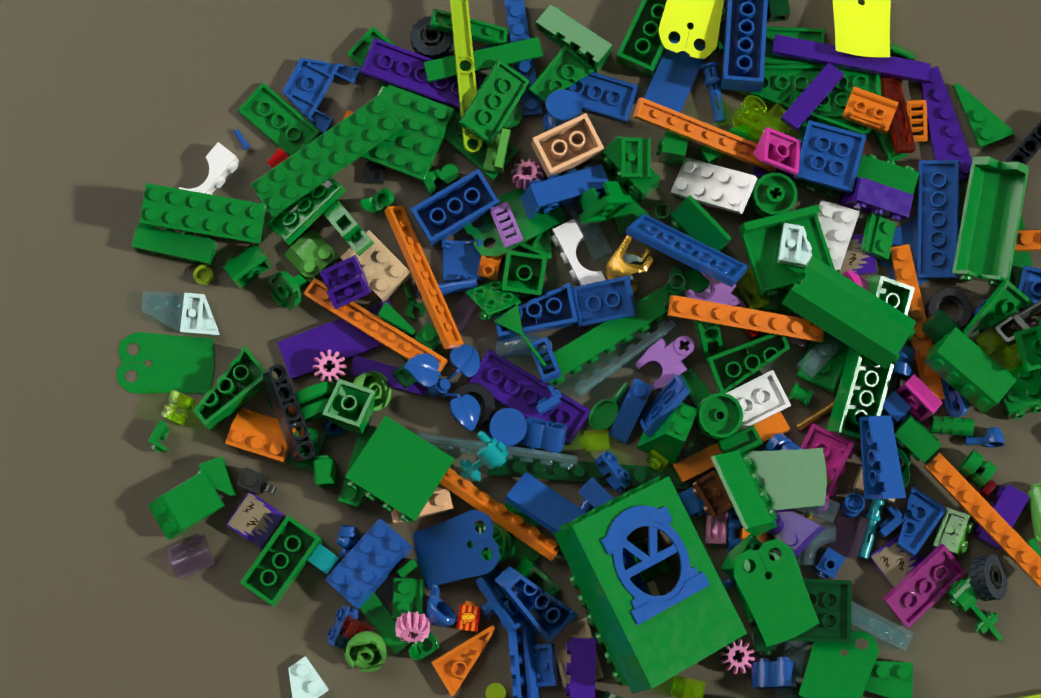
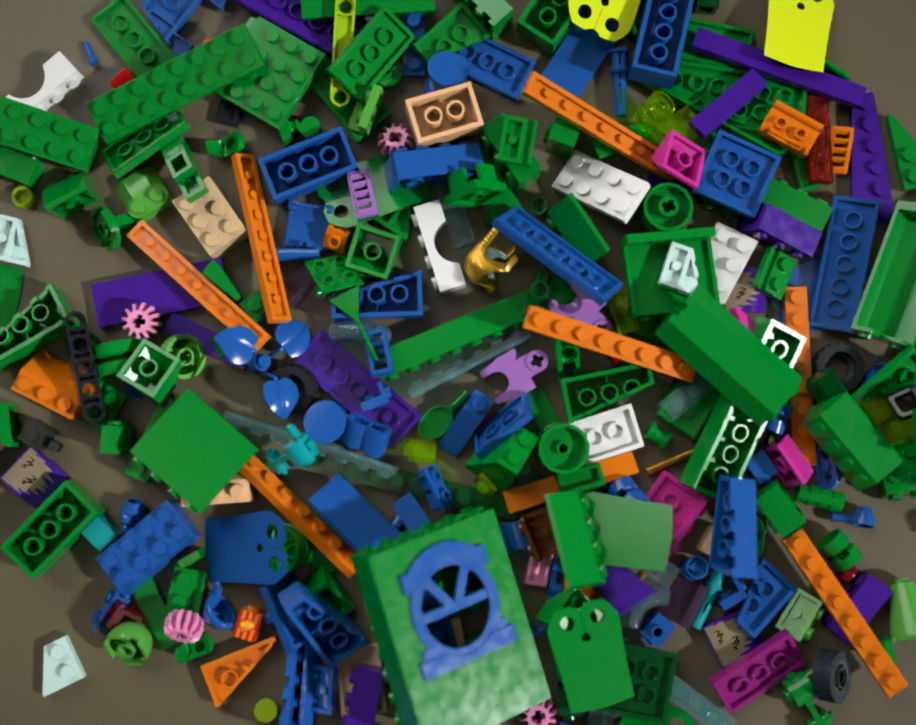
camera: 10 degrees right, 5 degrees up
(345, 282) = (172, 230): dark purple slope -> none
(412, 302) = (246, 264): green bar -> none
(604, 301) = (456, 297): blue tile -> none

